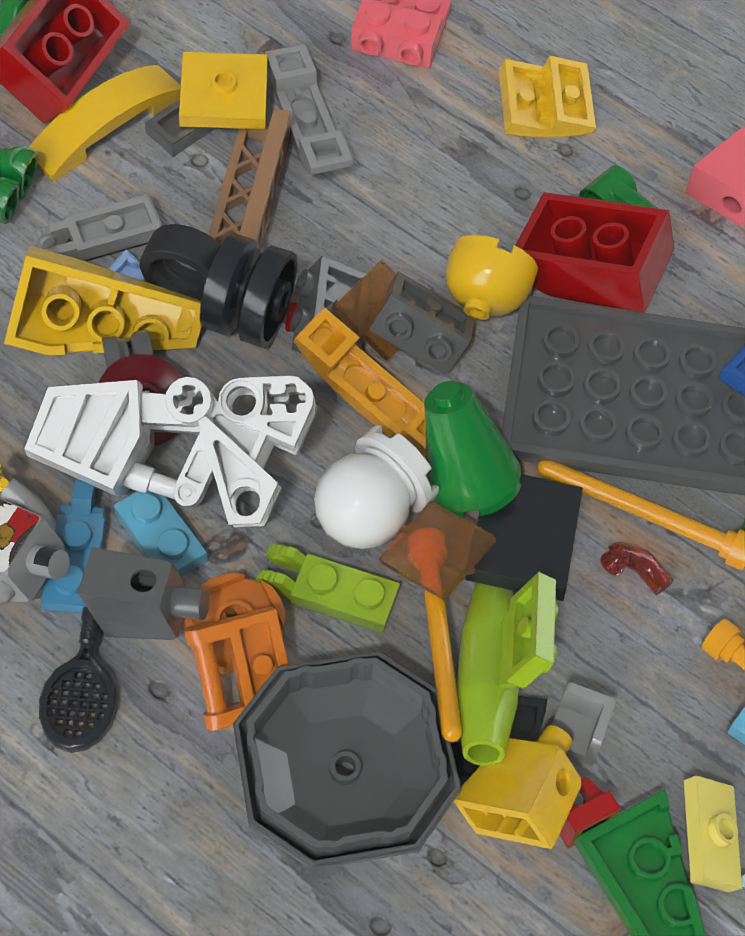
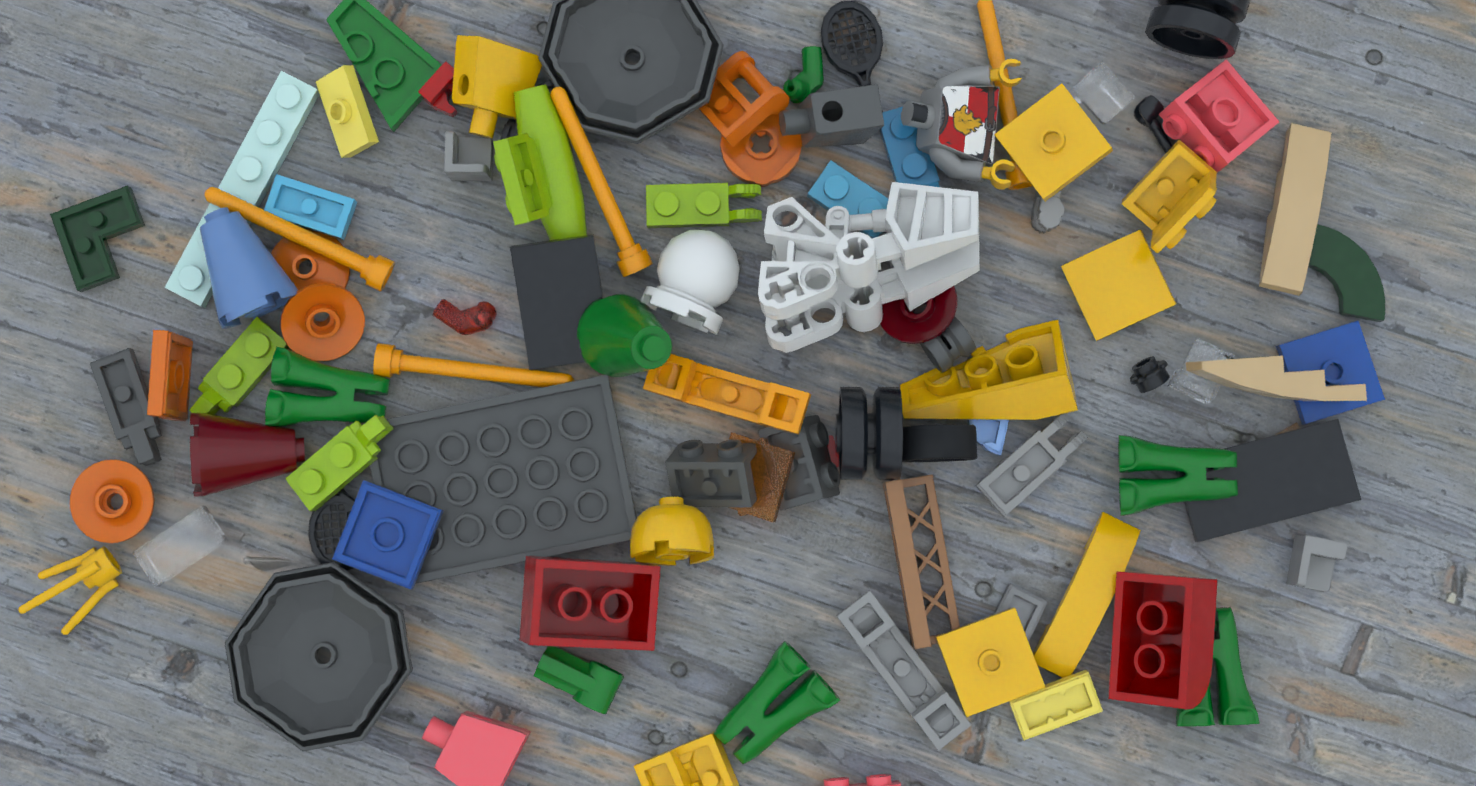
camera: 170 degrees right, 25 degrees up
(148, 675) = (809, 79): none -> green arm
(166, 43) = (1056, 705): none -> light yellow plate
(431, 129) = (804, 701): none -> green piece
(437, 550) = (623, 248): clear orange piece -> none

